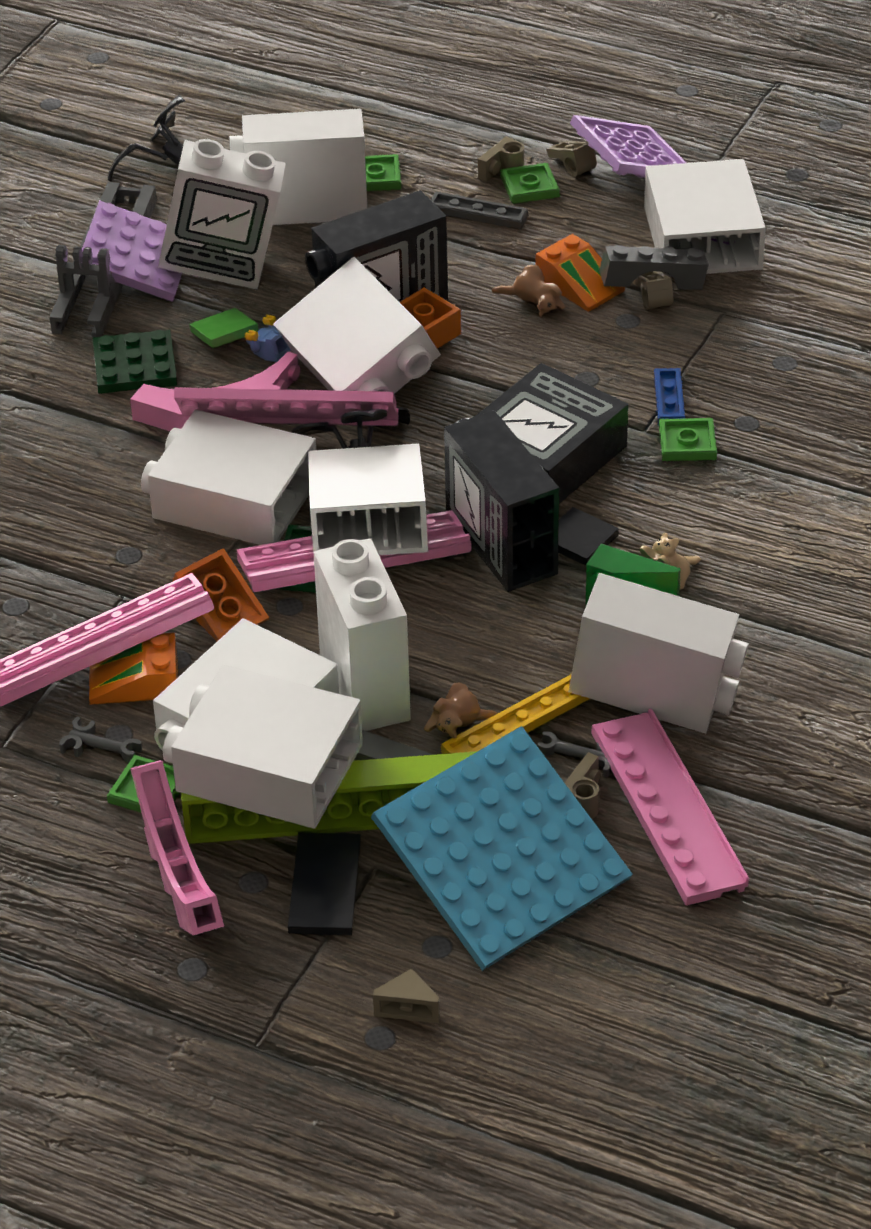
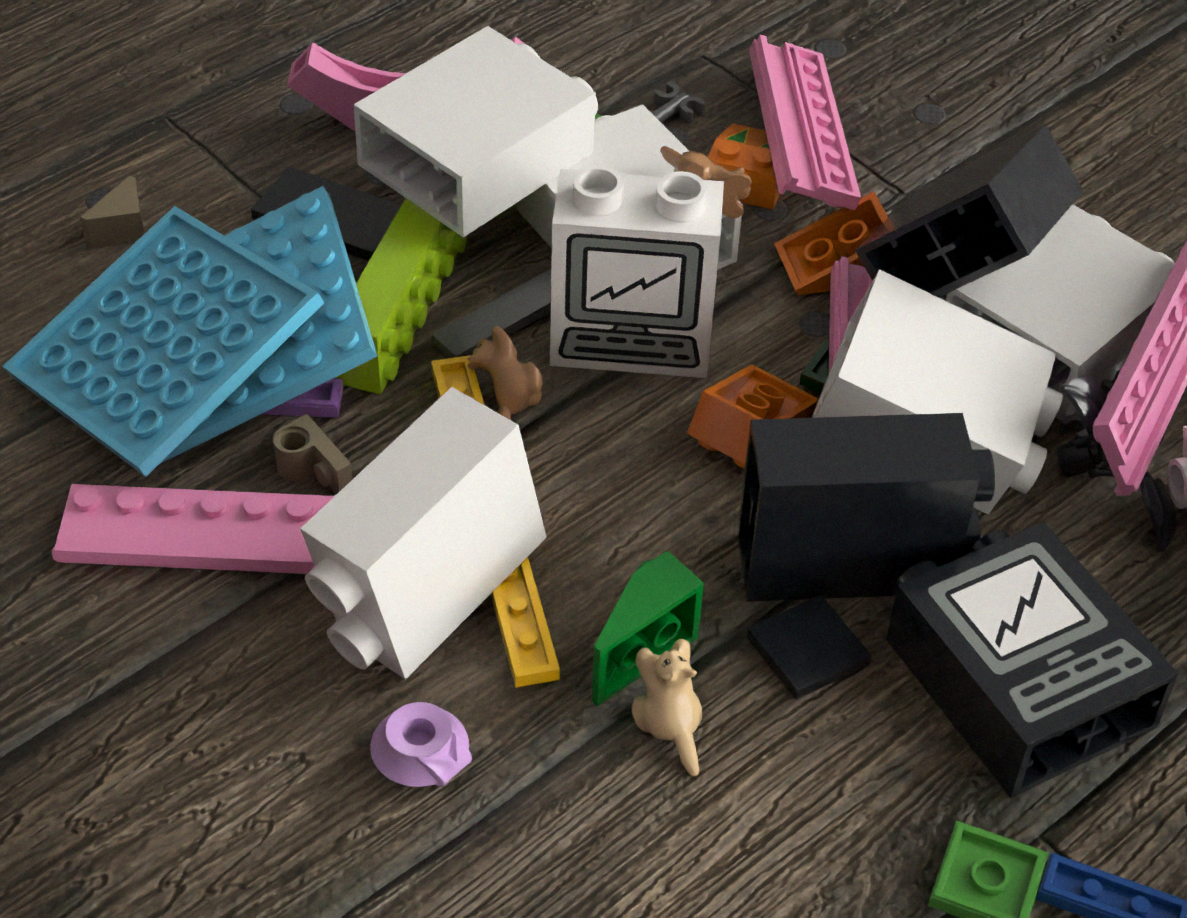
camera: 110 degrees right, 5 degrees up
(217, 491) = (975, 217): none -> black brick
(244, 629) = (735, 182): none -> medium nougat animal
(426, 594) = (730, 405): none -> orange slope
(549, 875) = (162, 338): none -> medium azure plate
(768, 660) = (420, 745): none -> lavender piece

